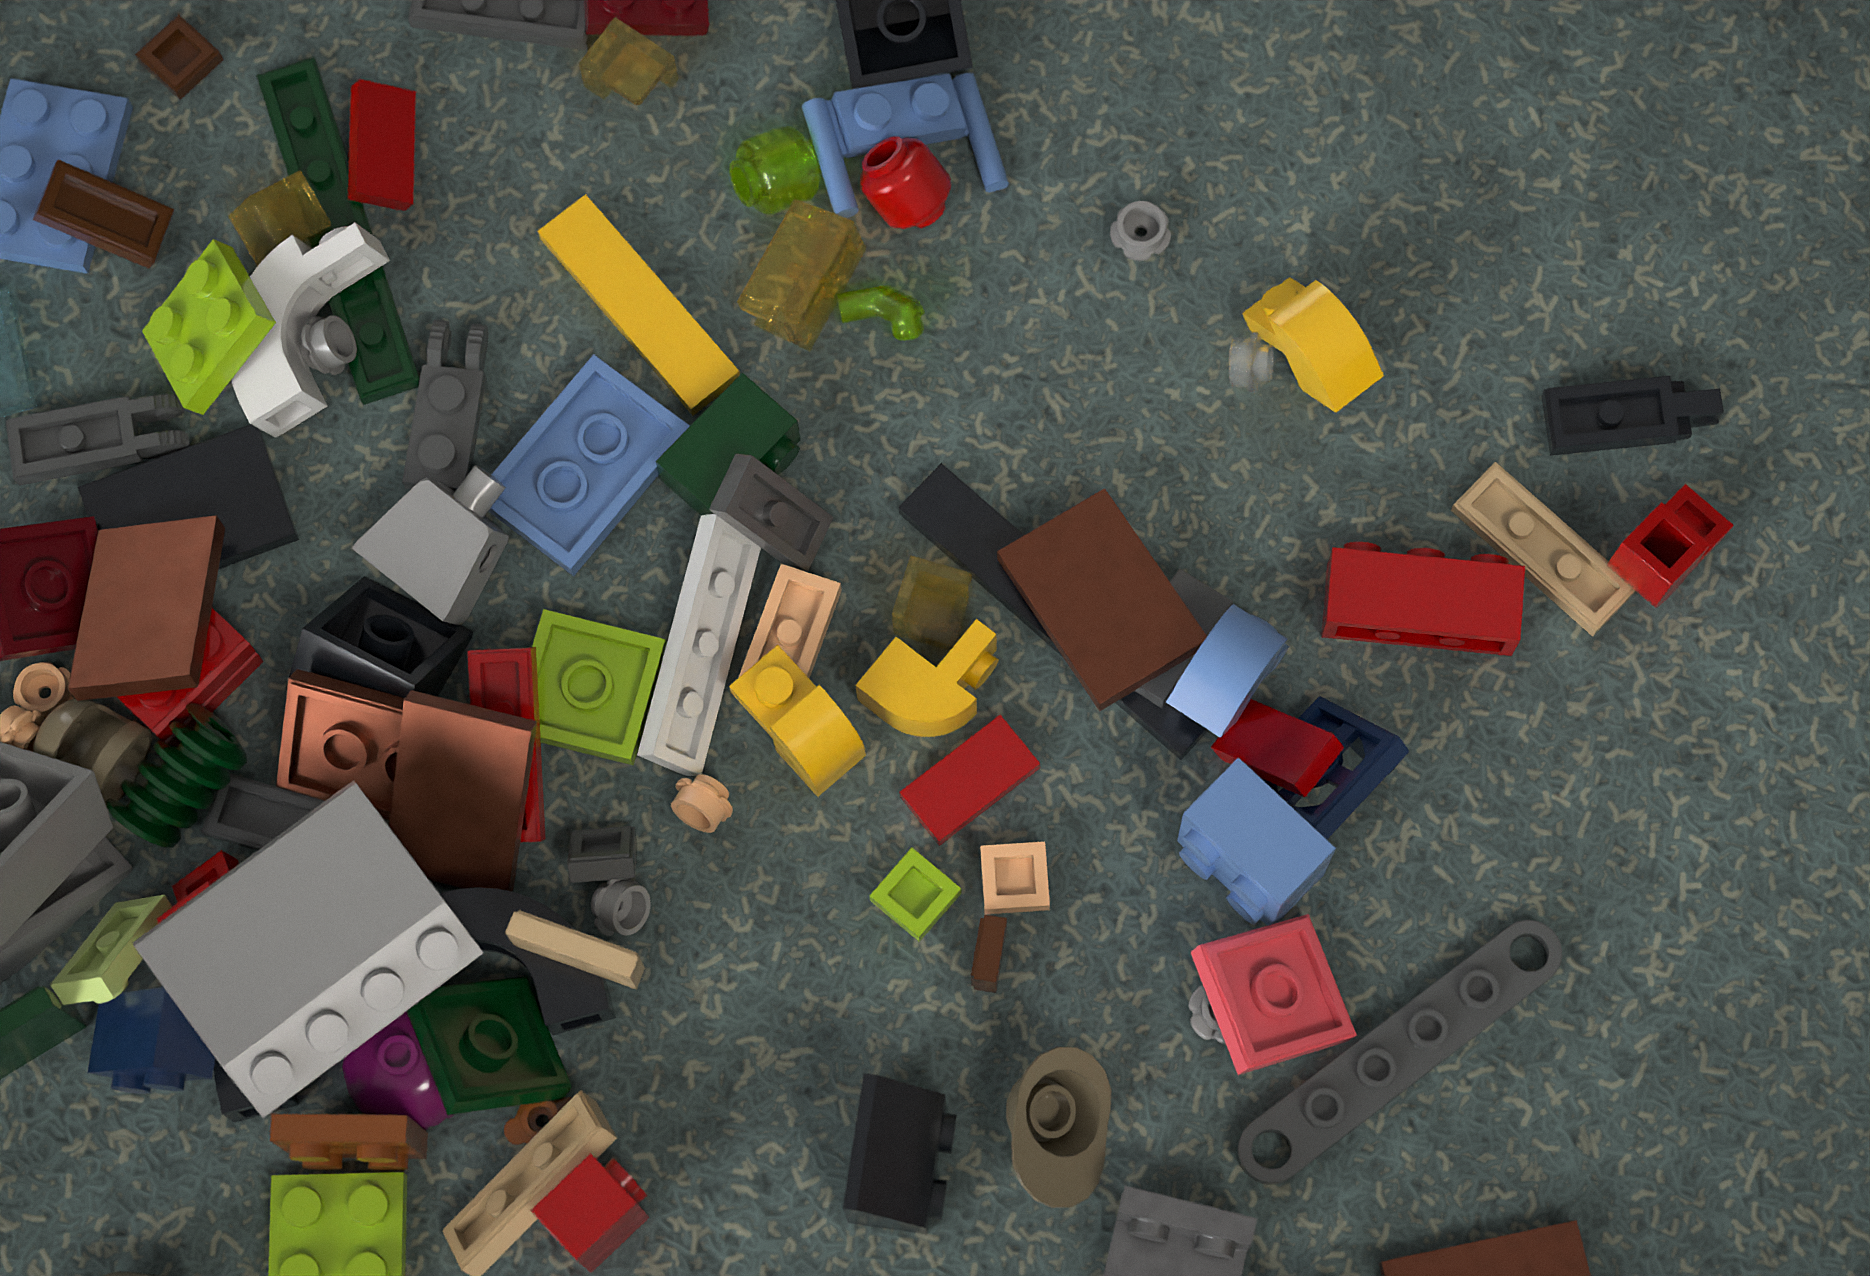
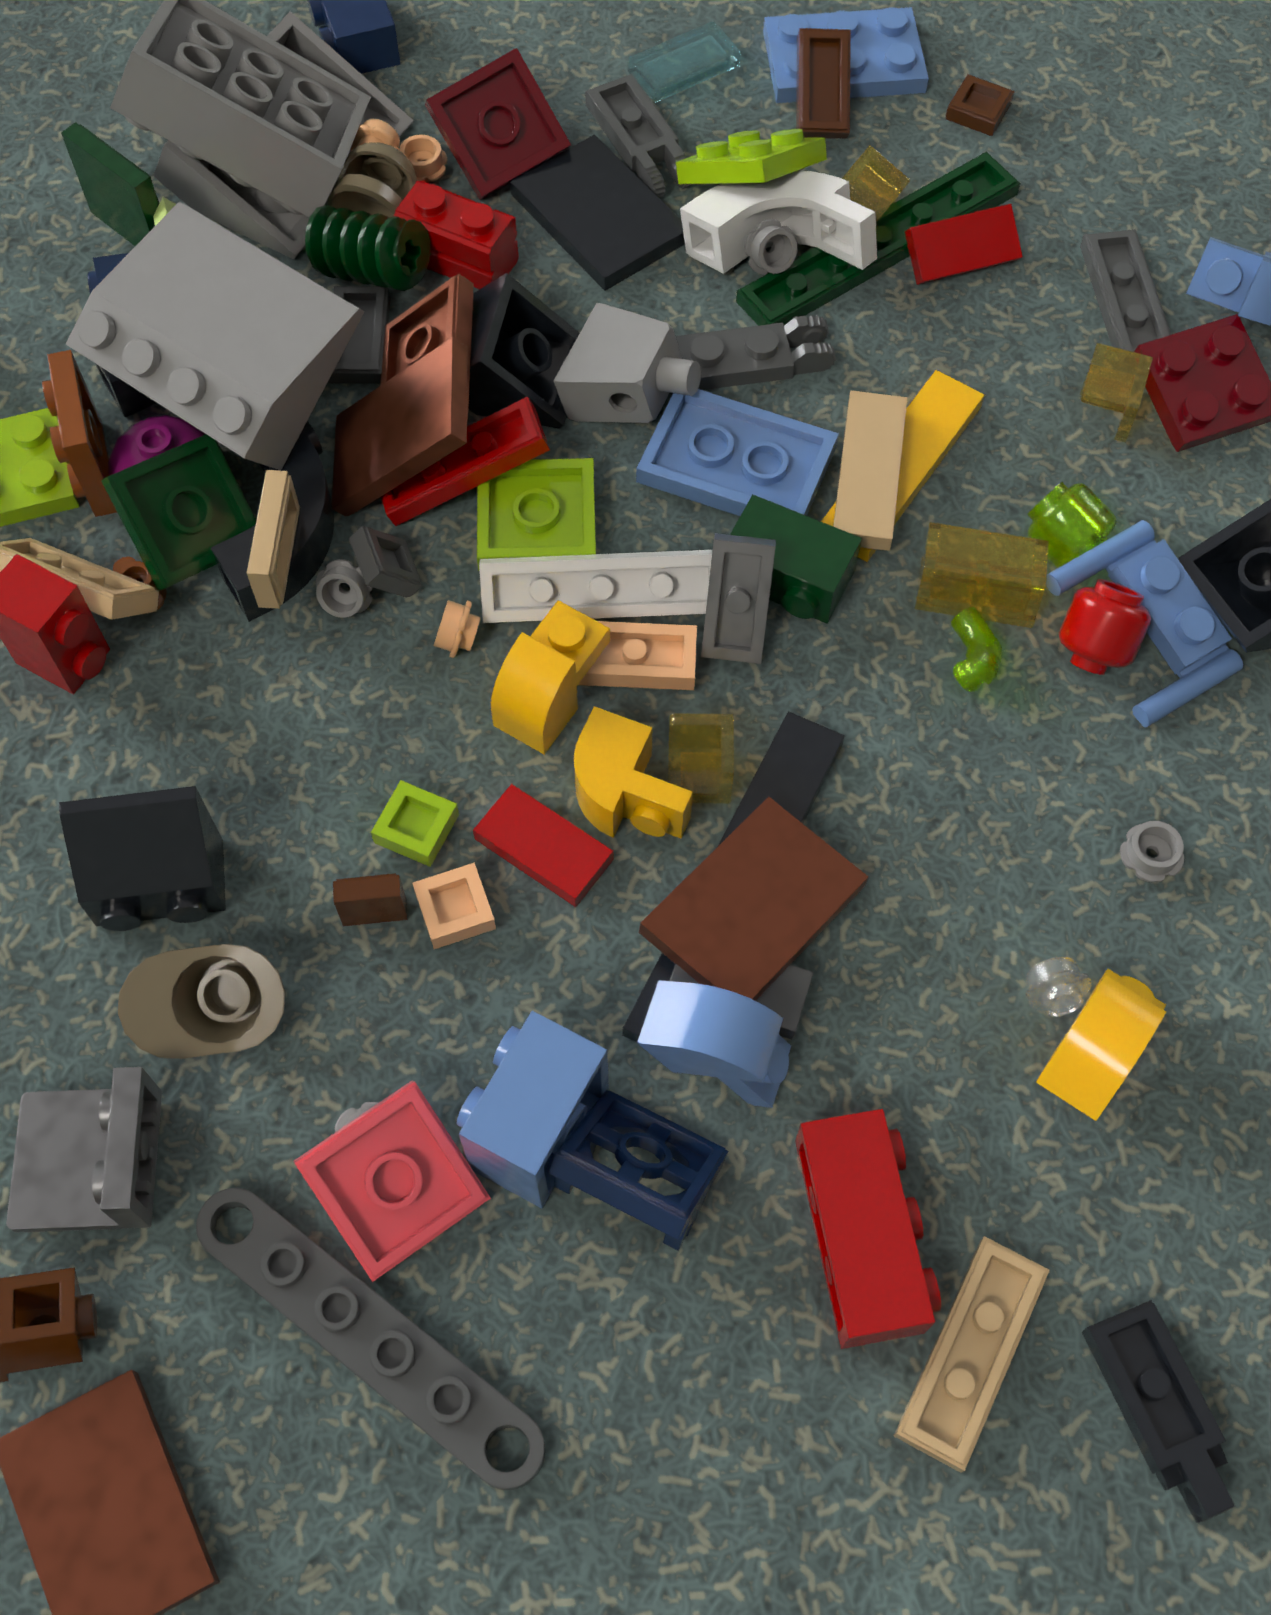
camera: 70 degrees right, 10 degrees down
(147, 608) = (495, 179): copper tile -> none
(648, 337) = (870, 468): none -> tan tile
(1279, 747) = (649, 1113): red tile -> none
(1669, 545) = (1019, 1487): red brick -> none

